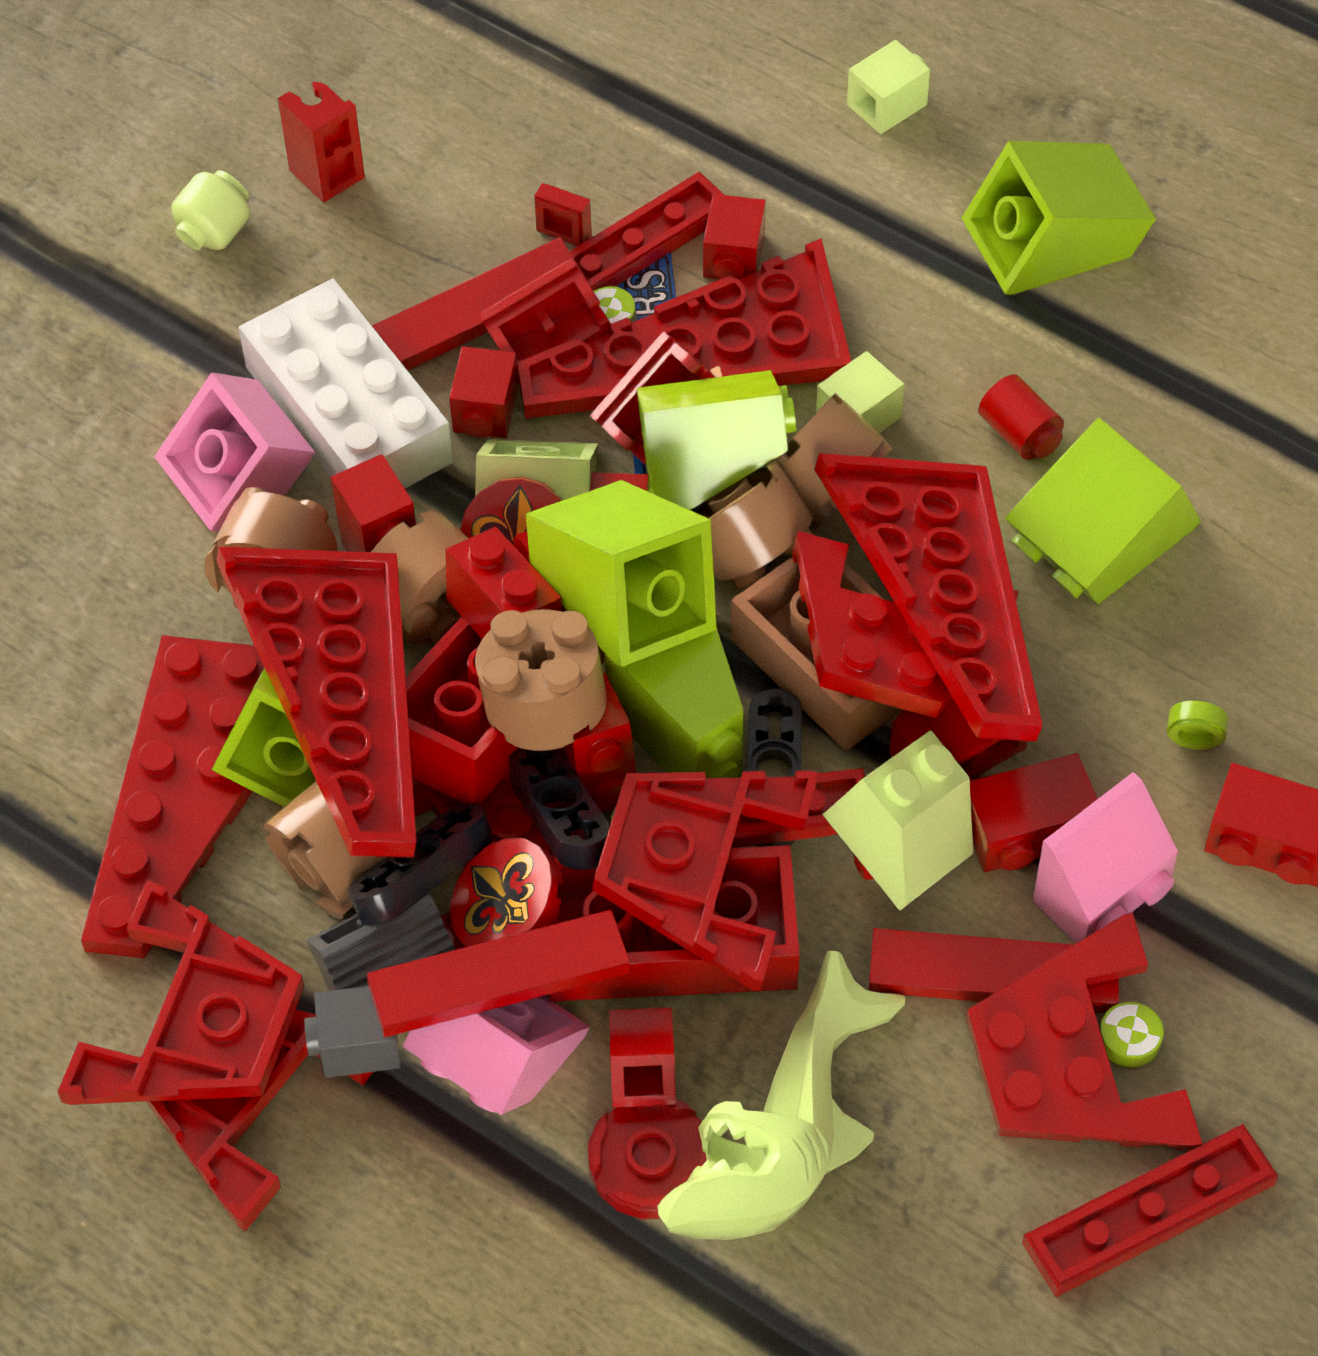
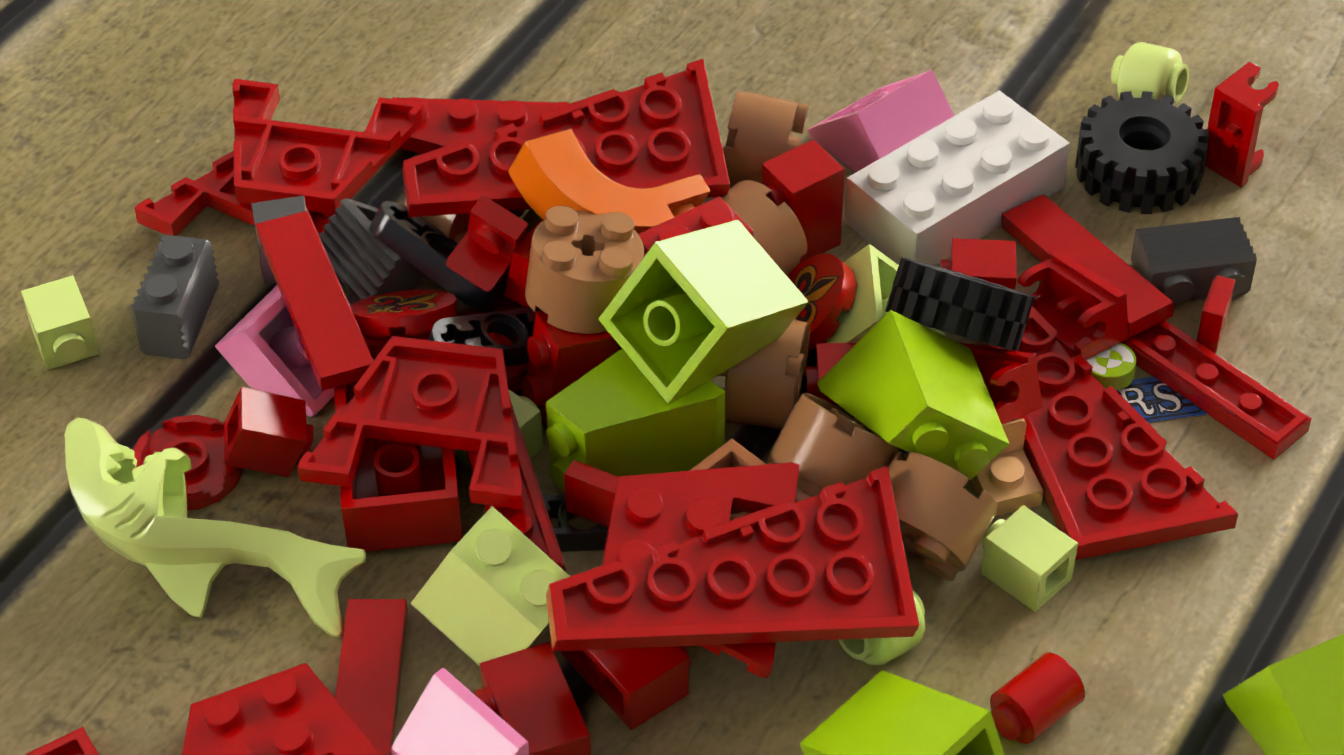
camera: 85 degrees right, 10 degrees down
(318, 203) = (1135, 175): none -> black tyre
(406, 1165) = (175, 296): none -> dark grey brick
(430, 1296) = (60, 322): none -> yellowish green brick
(437, 675) = (558, 173): none -> orange arch
(443, 799) = (488, 245): none -> red slope
(486, 217) = (1189, 255): none -> dark grey brick
(587, 382) = (960, 304): none -> black tyre
(733, 236) = (1221, 444): red brick -> none
(776, 733) = (589, 492): none -> red tile

